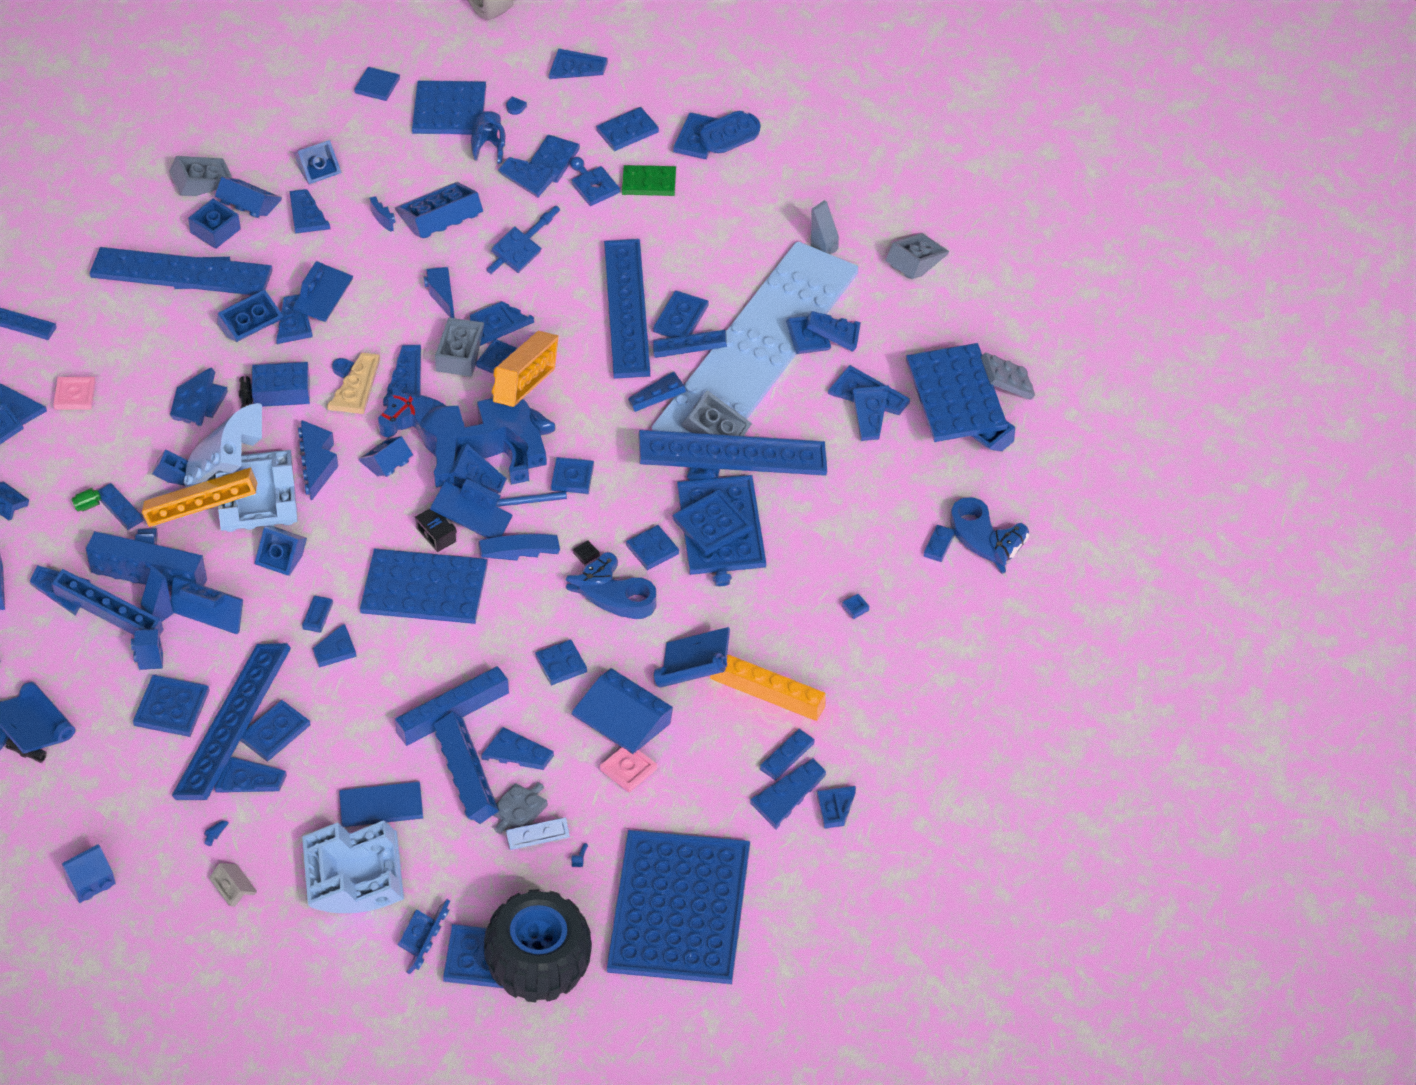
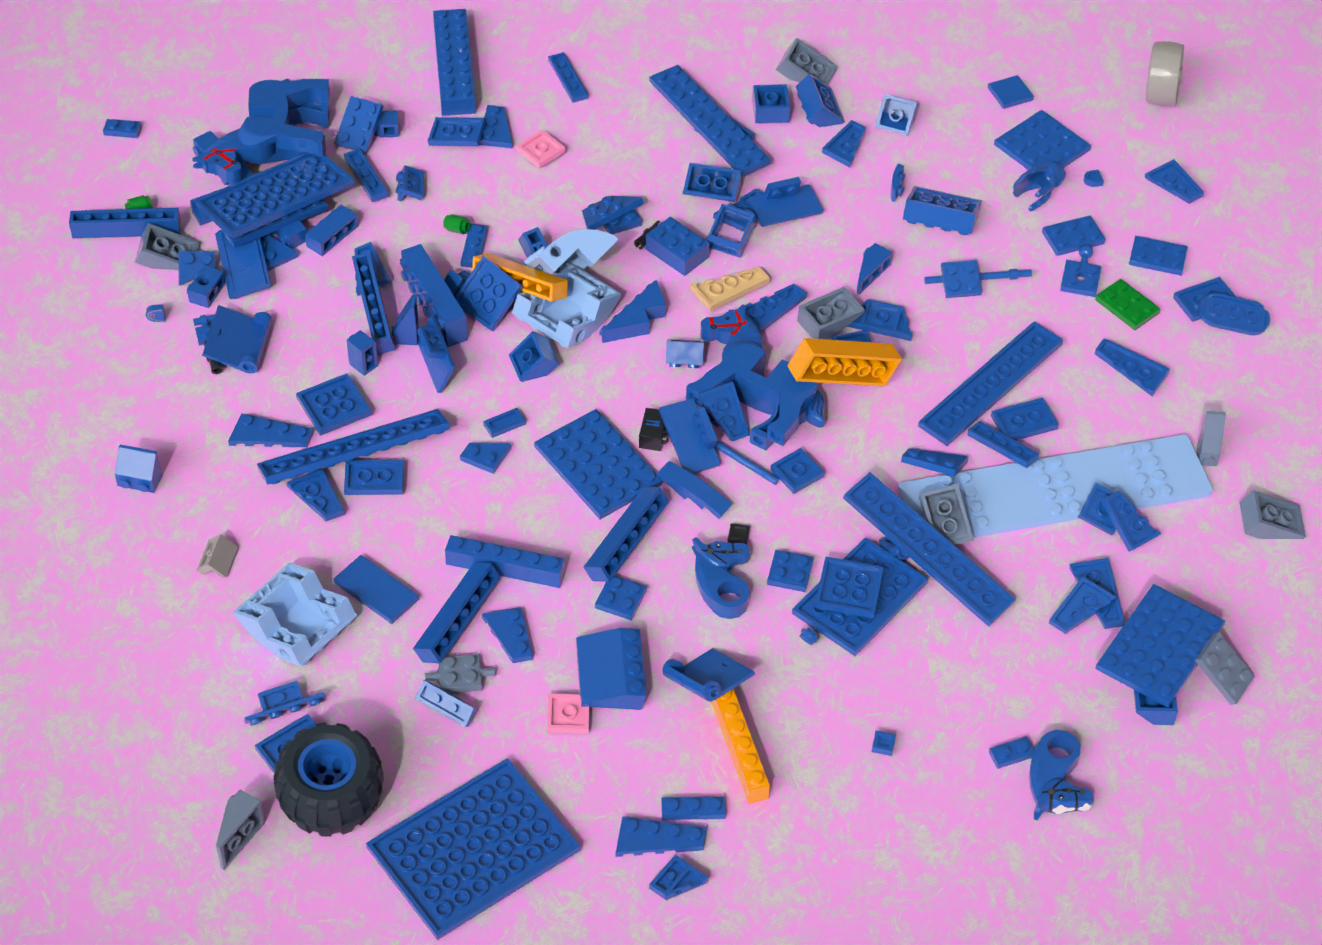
camera: 45 degrees right, 0 degrees up
(141, 770) = (259, 430): none -> blue wing
(189, 526) = (488, 293): none -> blue plate
(214, 832) = (252, 512): blue bar -> none
(316, 356) = (727, 246): none -> blue window
(342, 367) = (736, 266): blue tile -> none
(506, 1035) = (239, 825): none -> sand blue slope
(513, 615) = (626, 534): none -> blue brick
(528, 176) = (1037, 233): blue wing -> none
(578, 860) = (450, 749): blue hand -> none
(710, 220) = (1135, 367): none -> blue wing

